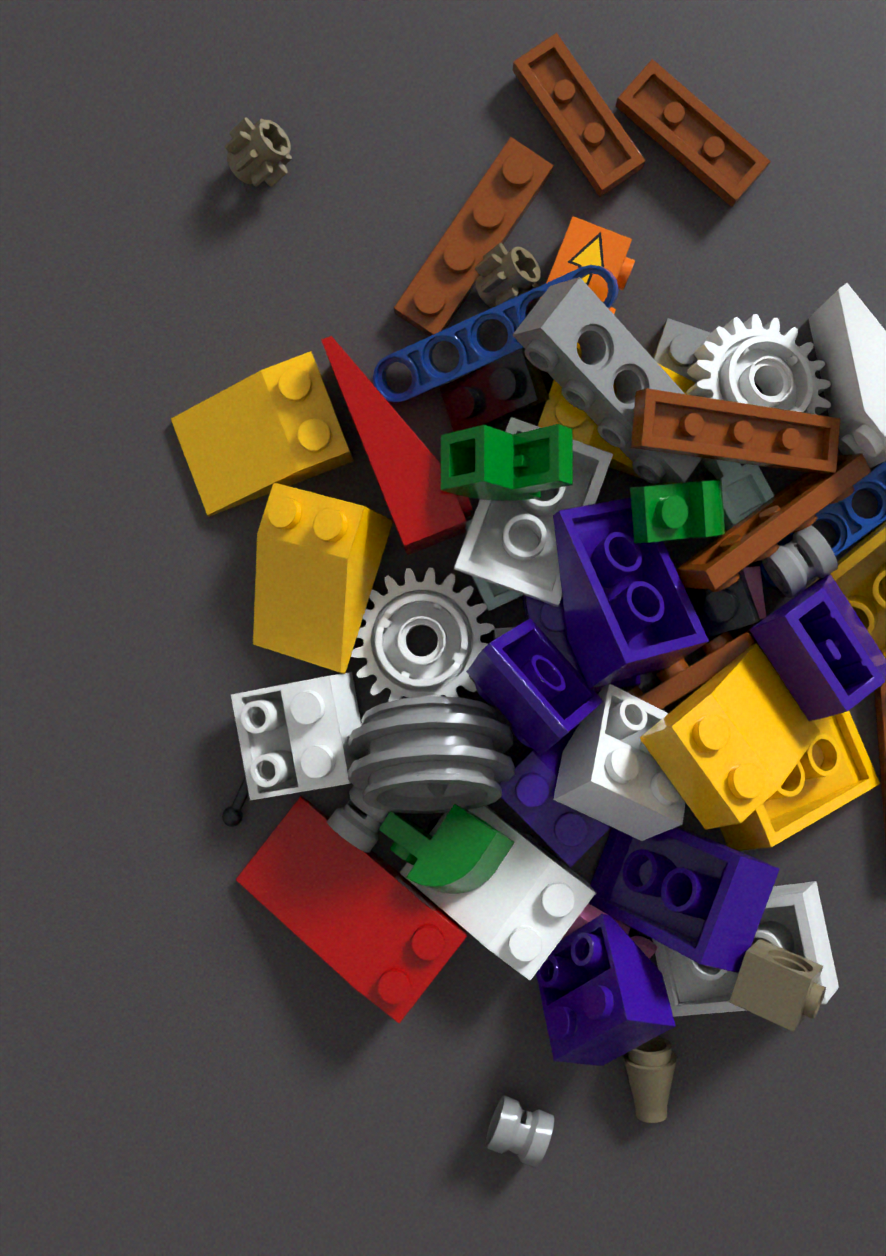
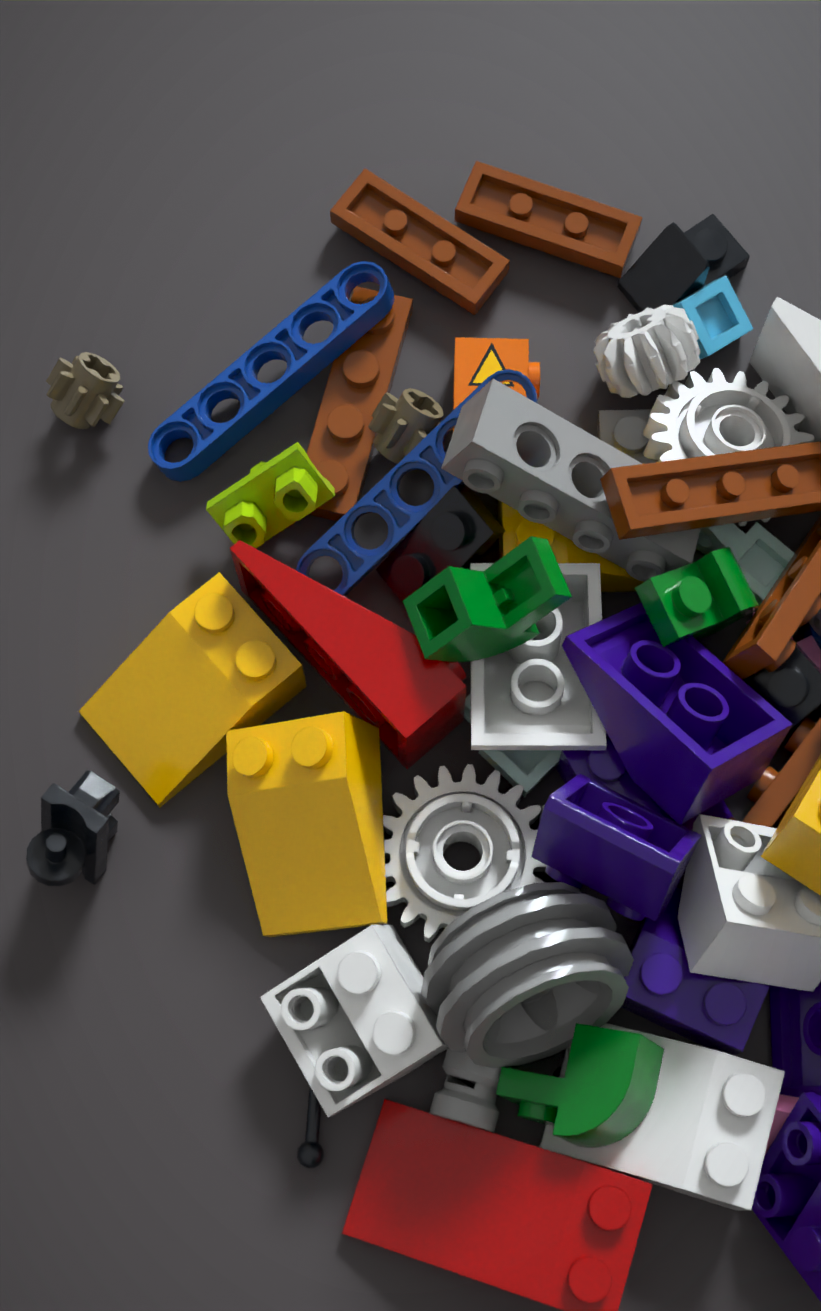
camera: 20 degrees left, 15 degrees down
(131, 520) = (74, 832): none -> black hips
(374, 301) = (270, 497): none -> lime hips
(442, 189) = (281, 343): none -> blue beam
(725, 283) = (647, 351): none -> white gear
(786, 218) = (682, 264): none -> black slope
(791, 271) = (715, 315): none -> medium azure plate

